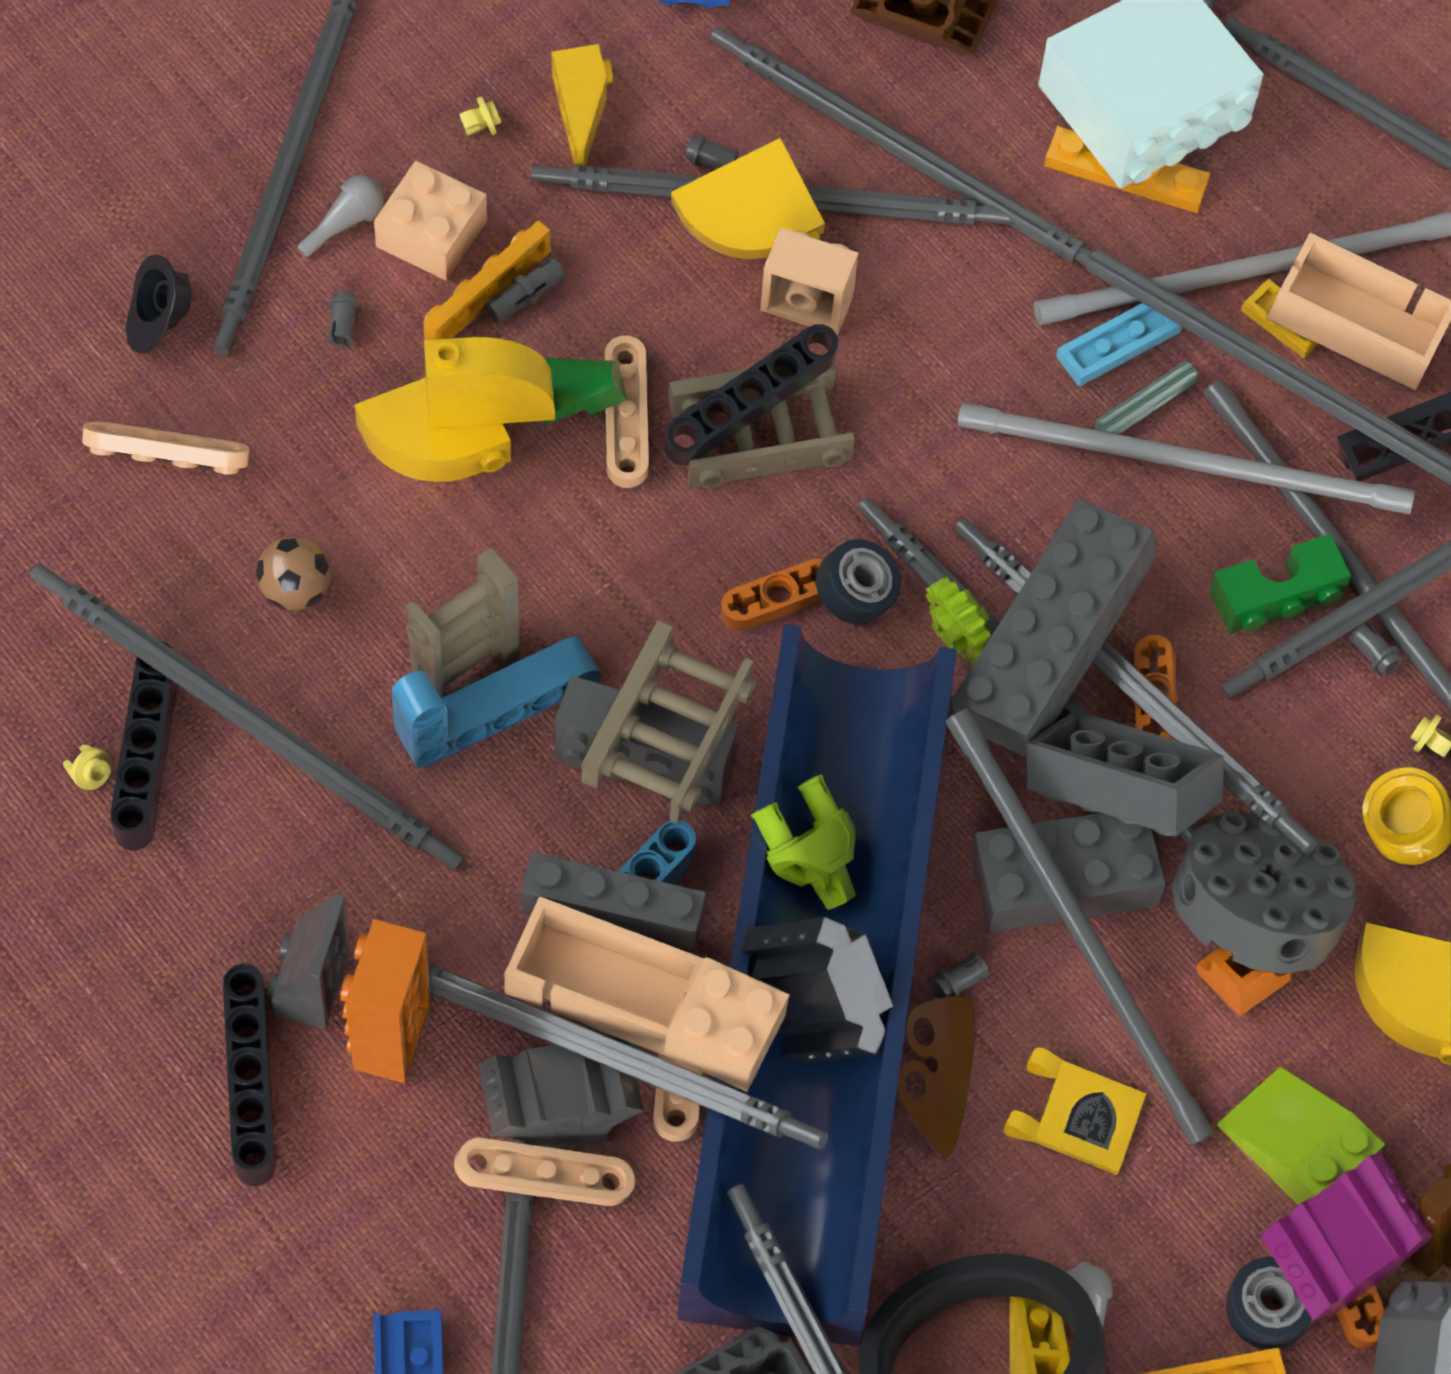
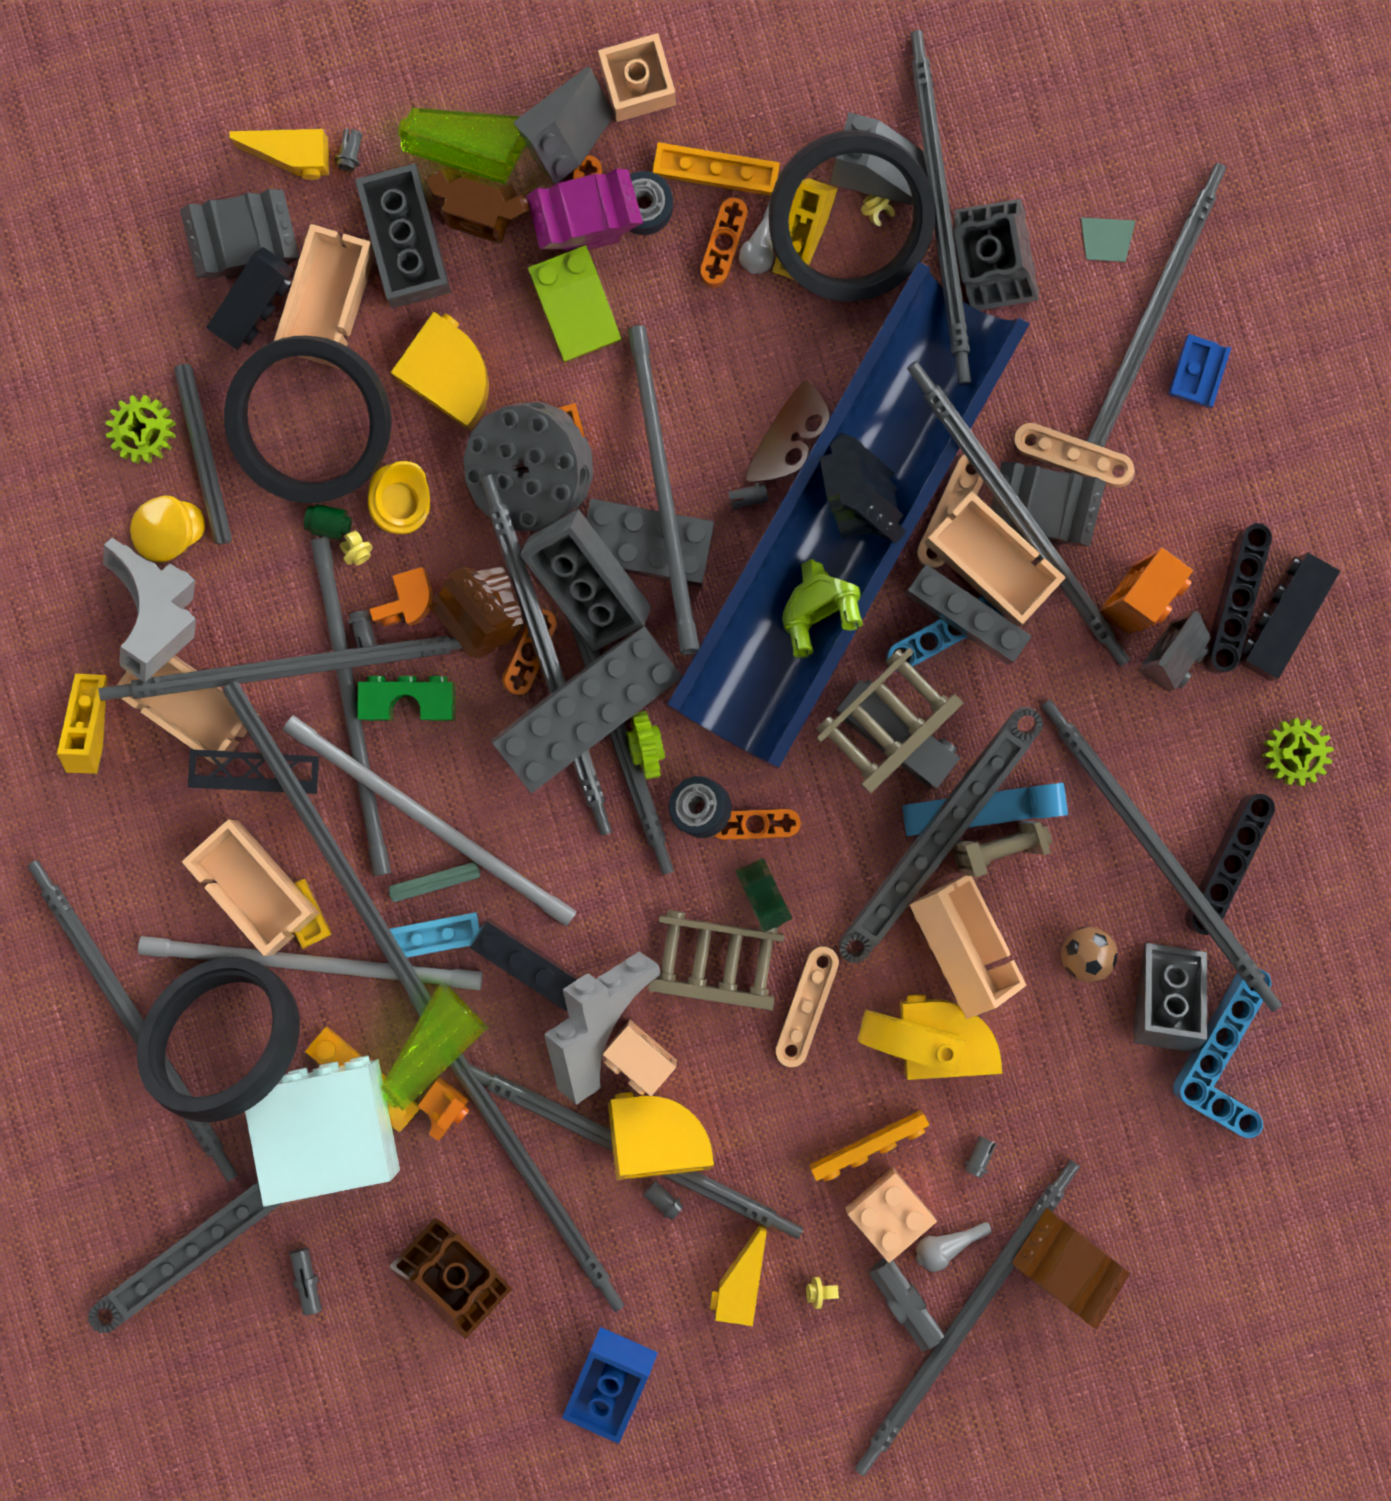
camera: 150 degrees left, 25 degrees up
(82, 524) = (1221, 1054): none -> dark azure beam
(89, 768) = (1271, 859): light yellow plate -> none
(114, 894) = (1297, 740): none -> lime gear
(149, 444) = (1141, 1095): light nougat plate -> none
(157, 304) = (1110, 1215): black piece -> none
(166, 566) = (1171, 998): none -> dark grey slope
(170, 1076) = (1289, 616): none -> black brick
(191, 220) = (1071, 1268): none -> reddish brown slope
(371, 136) = (906, 1304): none -> dark grey piece
(454, 518) = (963, 942): none -> light nougat piece
(525, 290) = (842, 1132): dark grey pin -> none
(539, 642) = (940, 834): none -> dark grey plate
(585, 385) = (835, 1038): green slope -> none
(726, 1024) = (938, 477): light nougat brick -> none
(730, 511) = (764, 895): none -> clear green brick
(759, 377) = (733, 961): black beam -> none
(887, 300) = (593, 1010): none -> light grey arch
(986, 337) = (523, 961): none -> black brick
(1019, 165) = (444, 1106): none -> orange brick
(1060, 218) = (435, 1043): none -> clear neon green slope
(1084, 1114) = (705, 374): yellow flag -> none
(1147, 1265) = (723, 218): none -> orange beam
(1240, 704) = (478, 609): none -> reddish brown slope
(1332, 703) = (414, 599): none -> orange brick
(1390, 116) = (264, 1074): none -> black tyre

